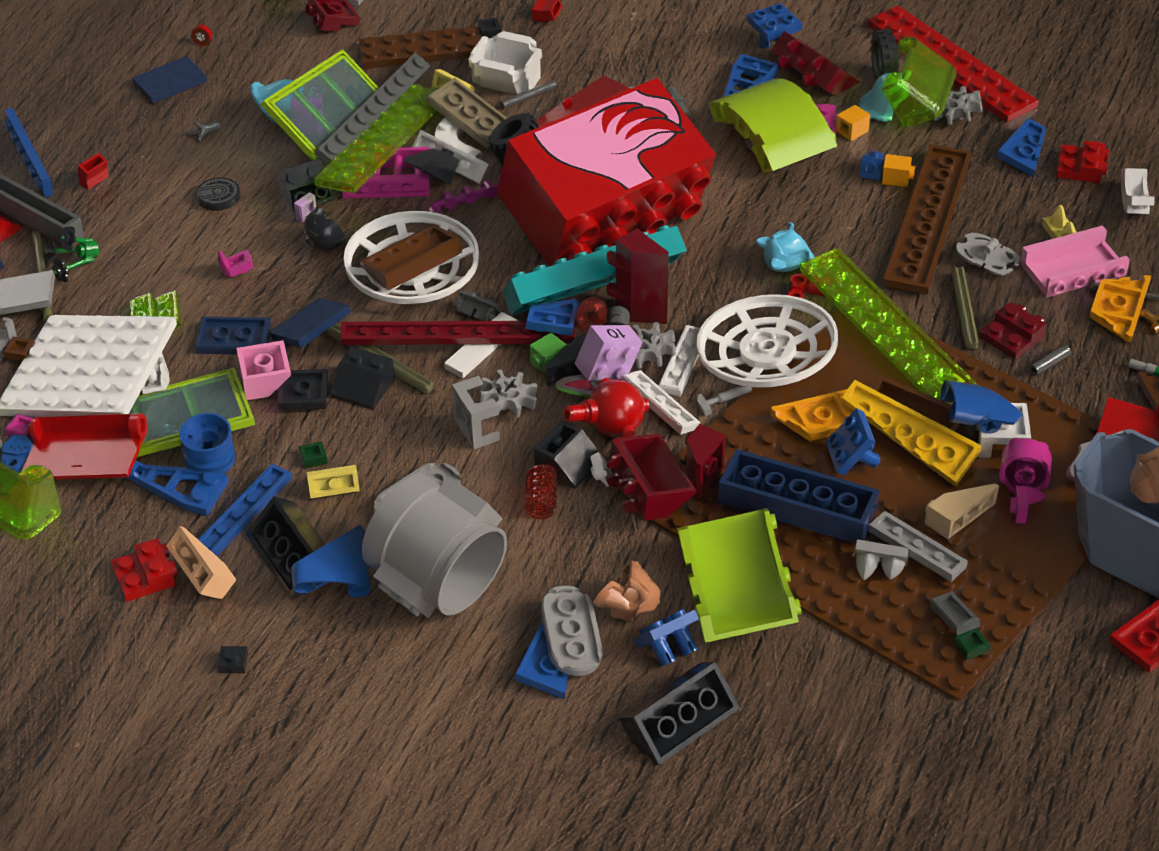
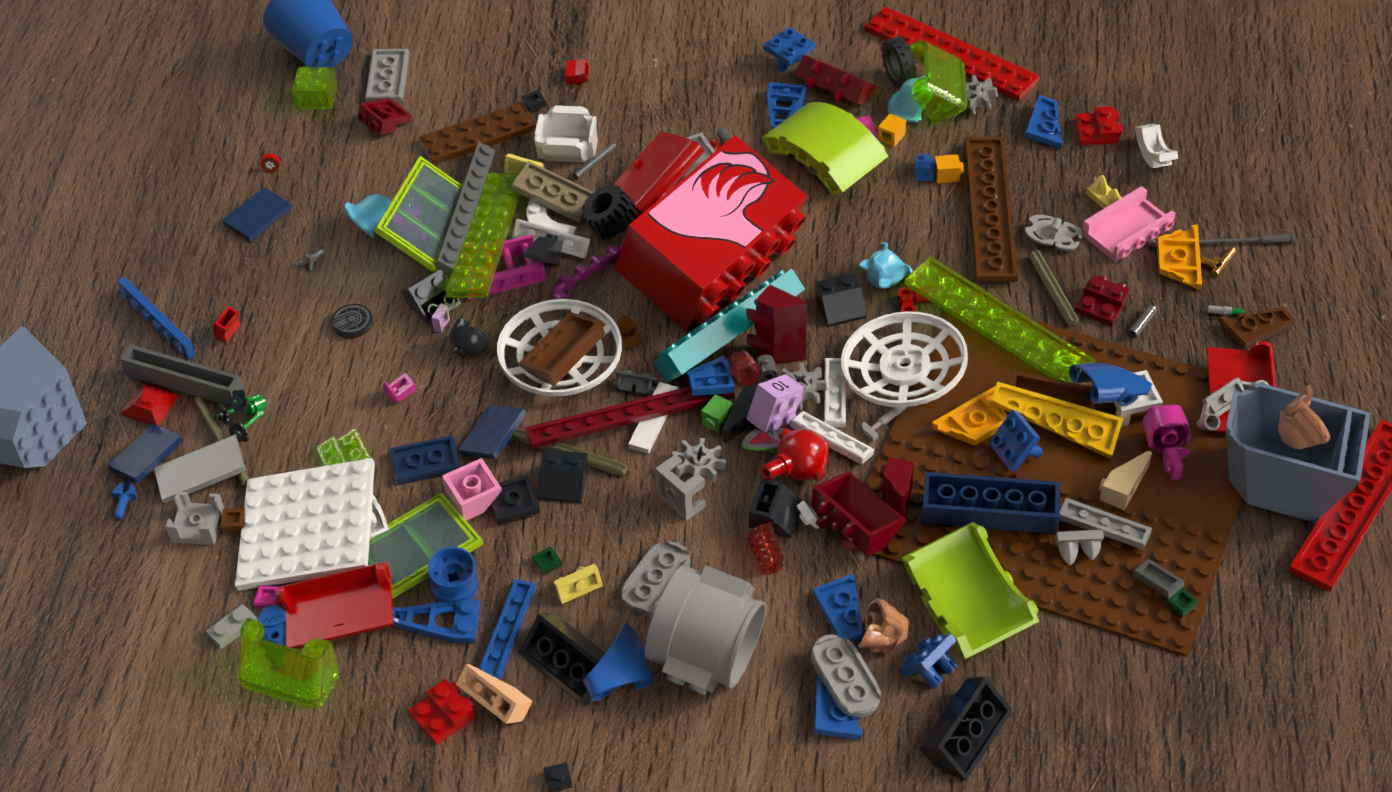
camera: 15 degrees left, 5 degrees up
(489, 258) = (629, 332): none -> reddish brown plate
(597, 562) = (840, 606): none -> blue wing
(726, 272) = (840, 299): none -> black slope

